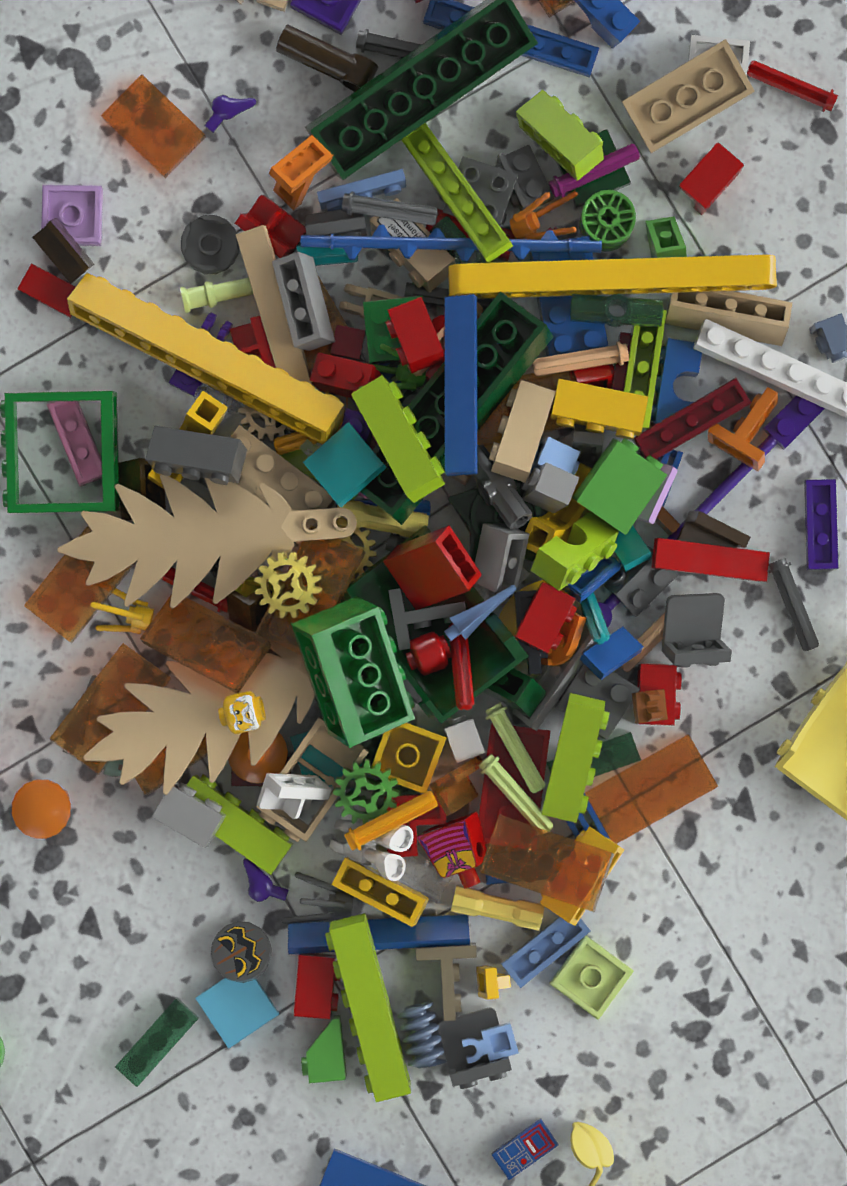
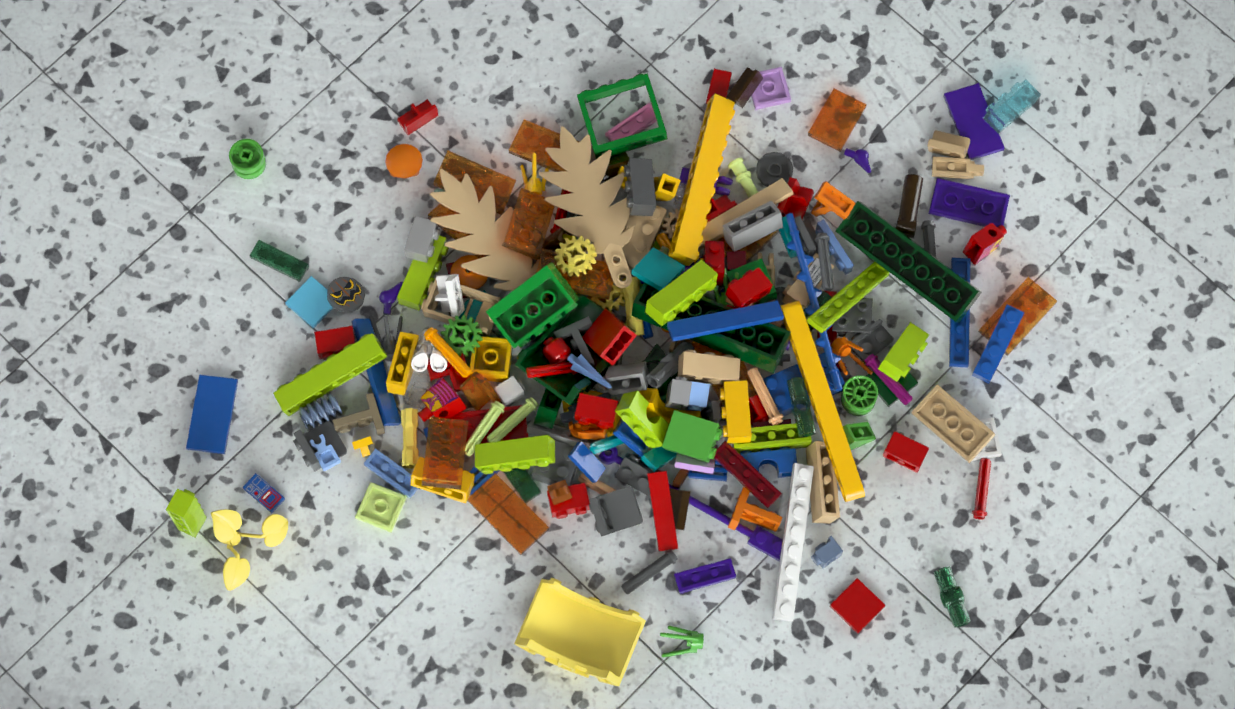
camera: 70 degrees right, 15 degrees down
(242, 712) = (491, 248): yellow head -> none
(326, 1055) = (295, 359): bright green slope -> none

